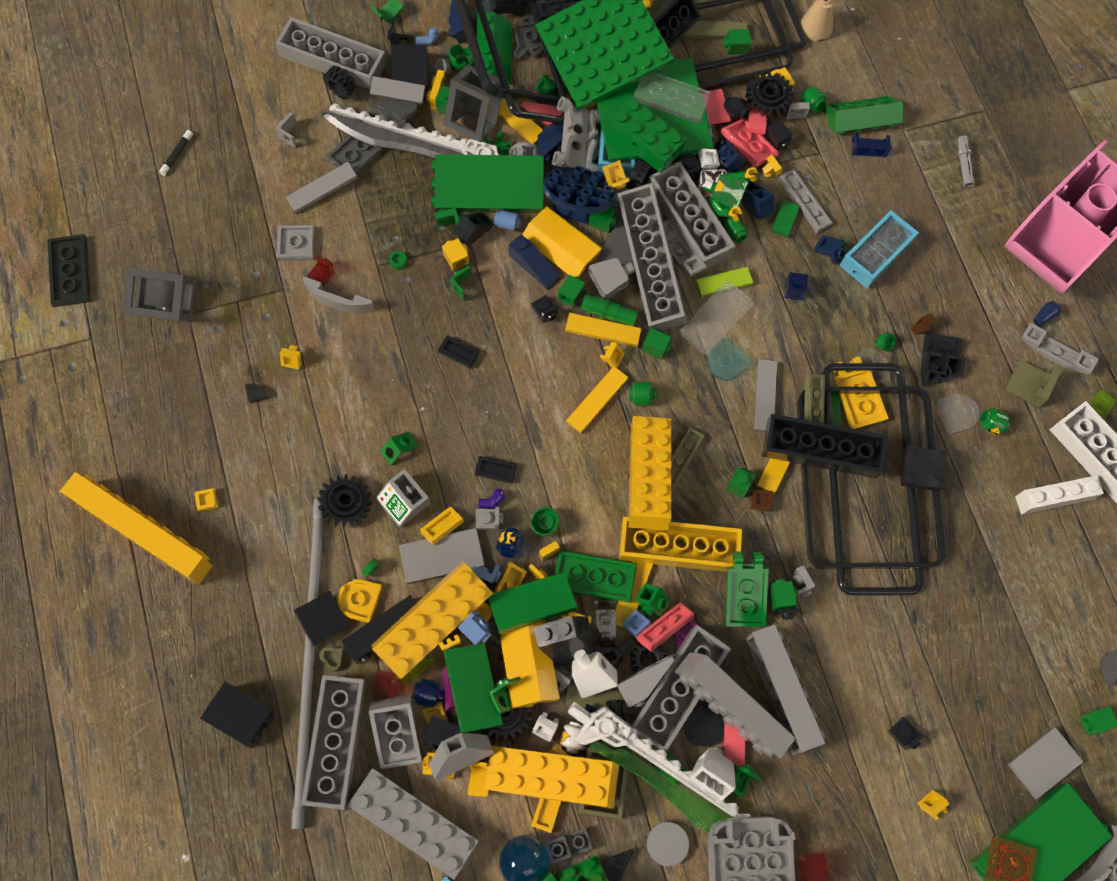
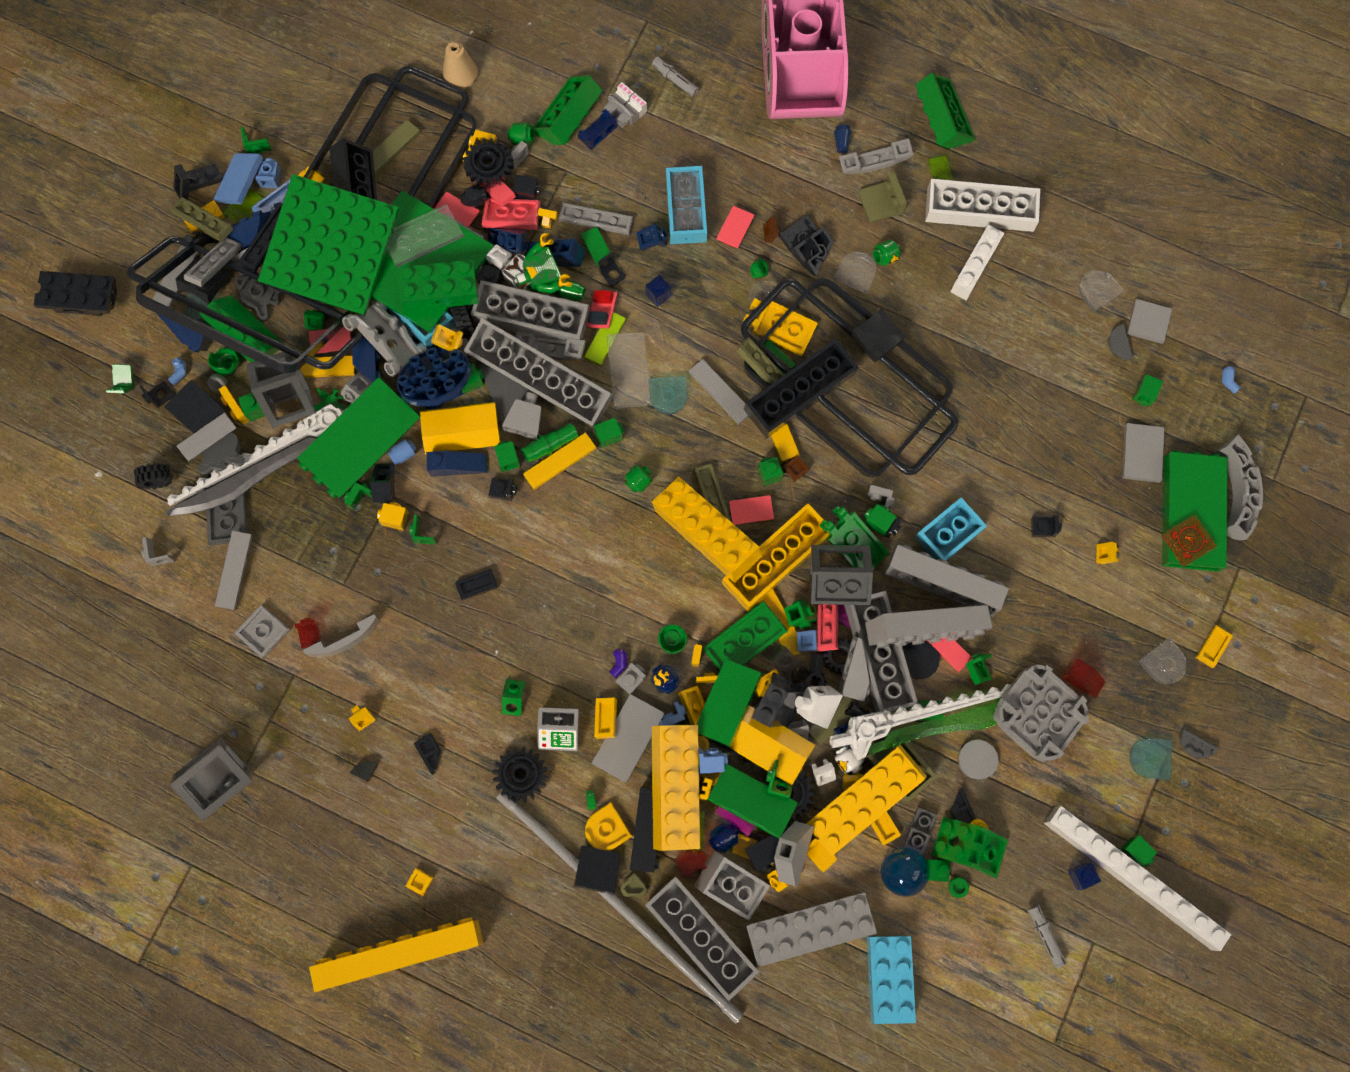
camera: 45 degrees left, 5 degrees up
(68, 270) = (111, 835): pearl dark grey tile -> none
(176, 152) = (85, 661): pearl dark grey bar -> none
(238, 715) = (618, 994): black slope -> none
(307, 425) = (429, 752): none -> black tile
(323, 49) = (116, 459): light grey brick -> none
(398, 260) = (354, 564): green tile -> none
(495, 469) = (597, 639): black tile -> none
(597, 399) = (611, 515): yellow tile -> none
(613, 355) = (588, 472): yellow tile -> none
(698, 495) = (751, 510): none -> coral piece
(702, 607) = (840, 584): none -> dark grey piece
(714, 773) = (960, 682): white torso -> none
(737, 41) = (421, 143): green brick -> none
(743, 261) = (601, 309): none -> piece
(779, 236) = (607, 265): none -> black bracket
(827, 659) = (950, 531): none -> medium azure brick
(899, 297) = (735, 227): none -> coral piece
(909, 148) = (626, 104): none -> hips

